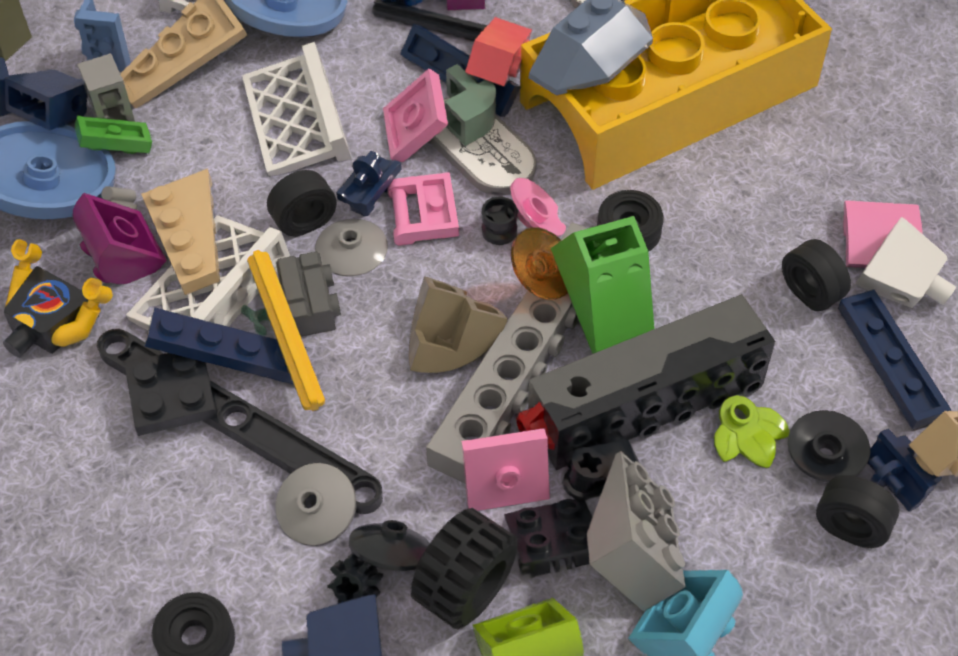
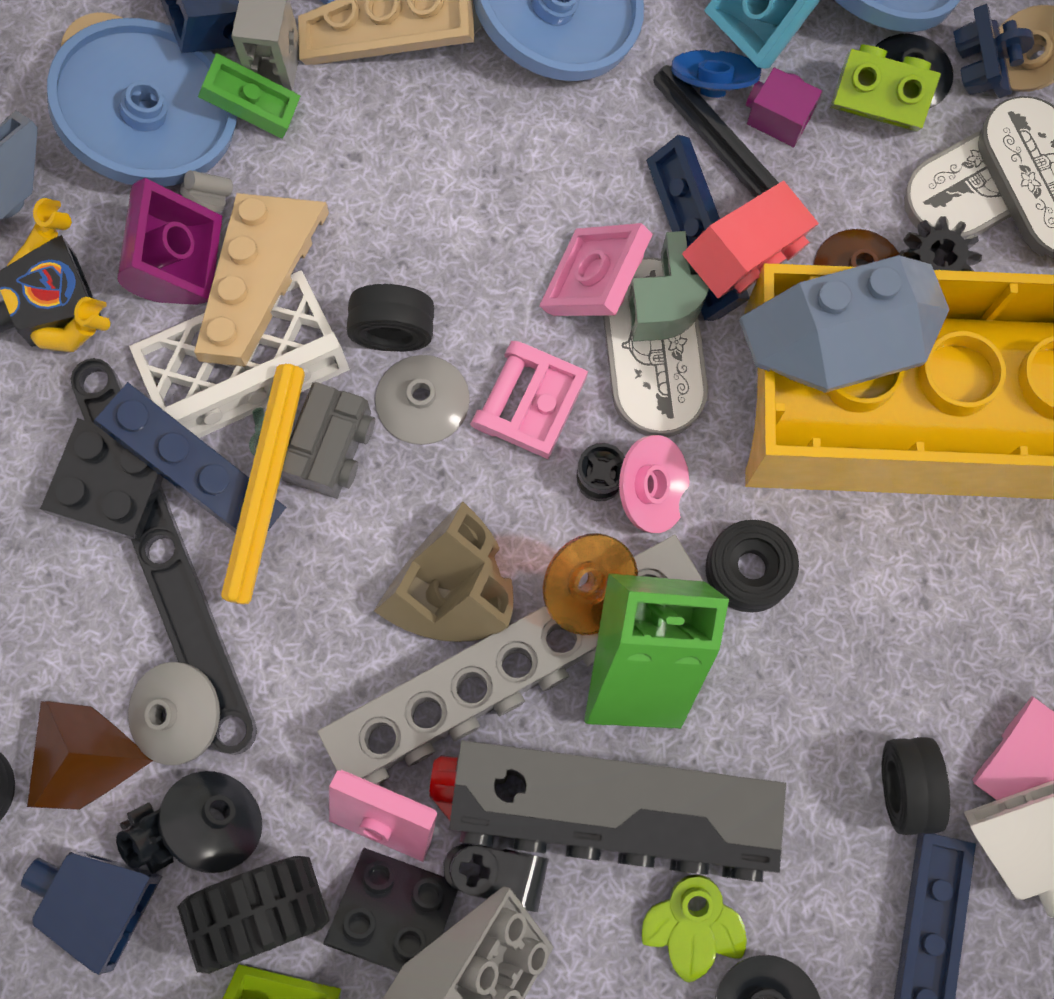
camera: 30 degrees right, 20 degrees up
(268, 569) = (78, 757): none -> reddish brown slope
(319, 97) = (506, 195): white fence -> none
(368, 182) = (487, 329): dark blue hips -> none

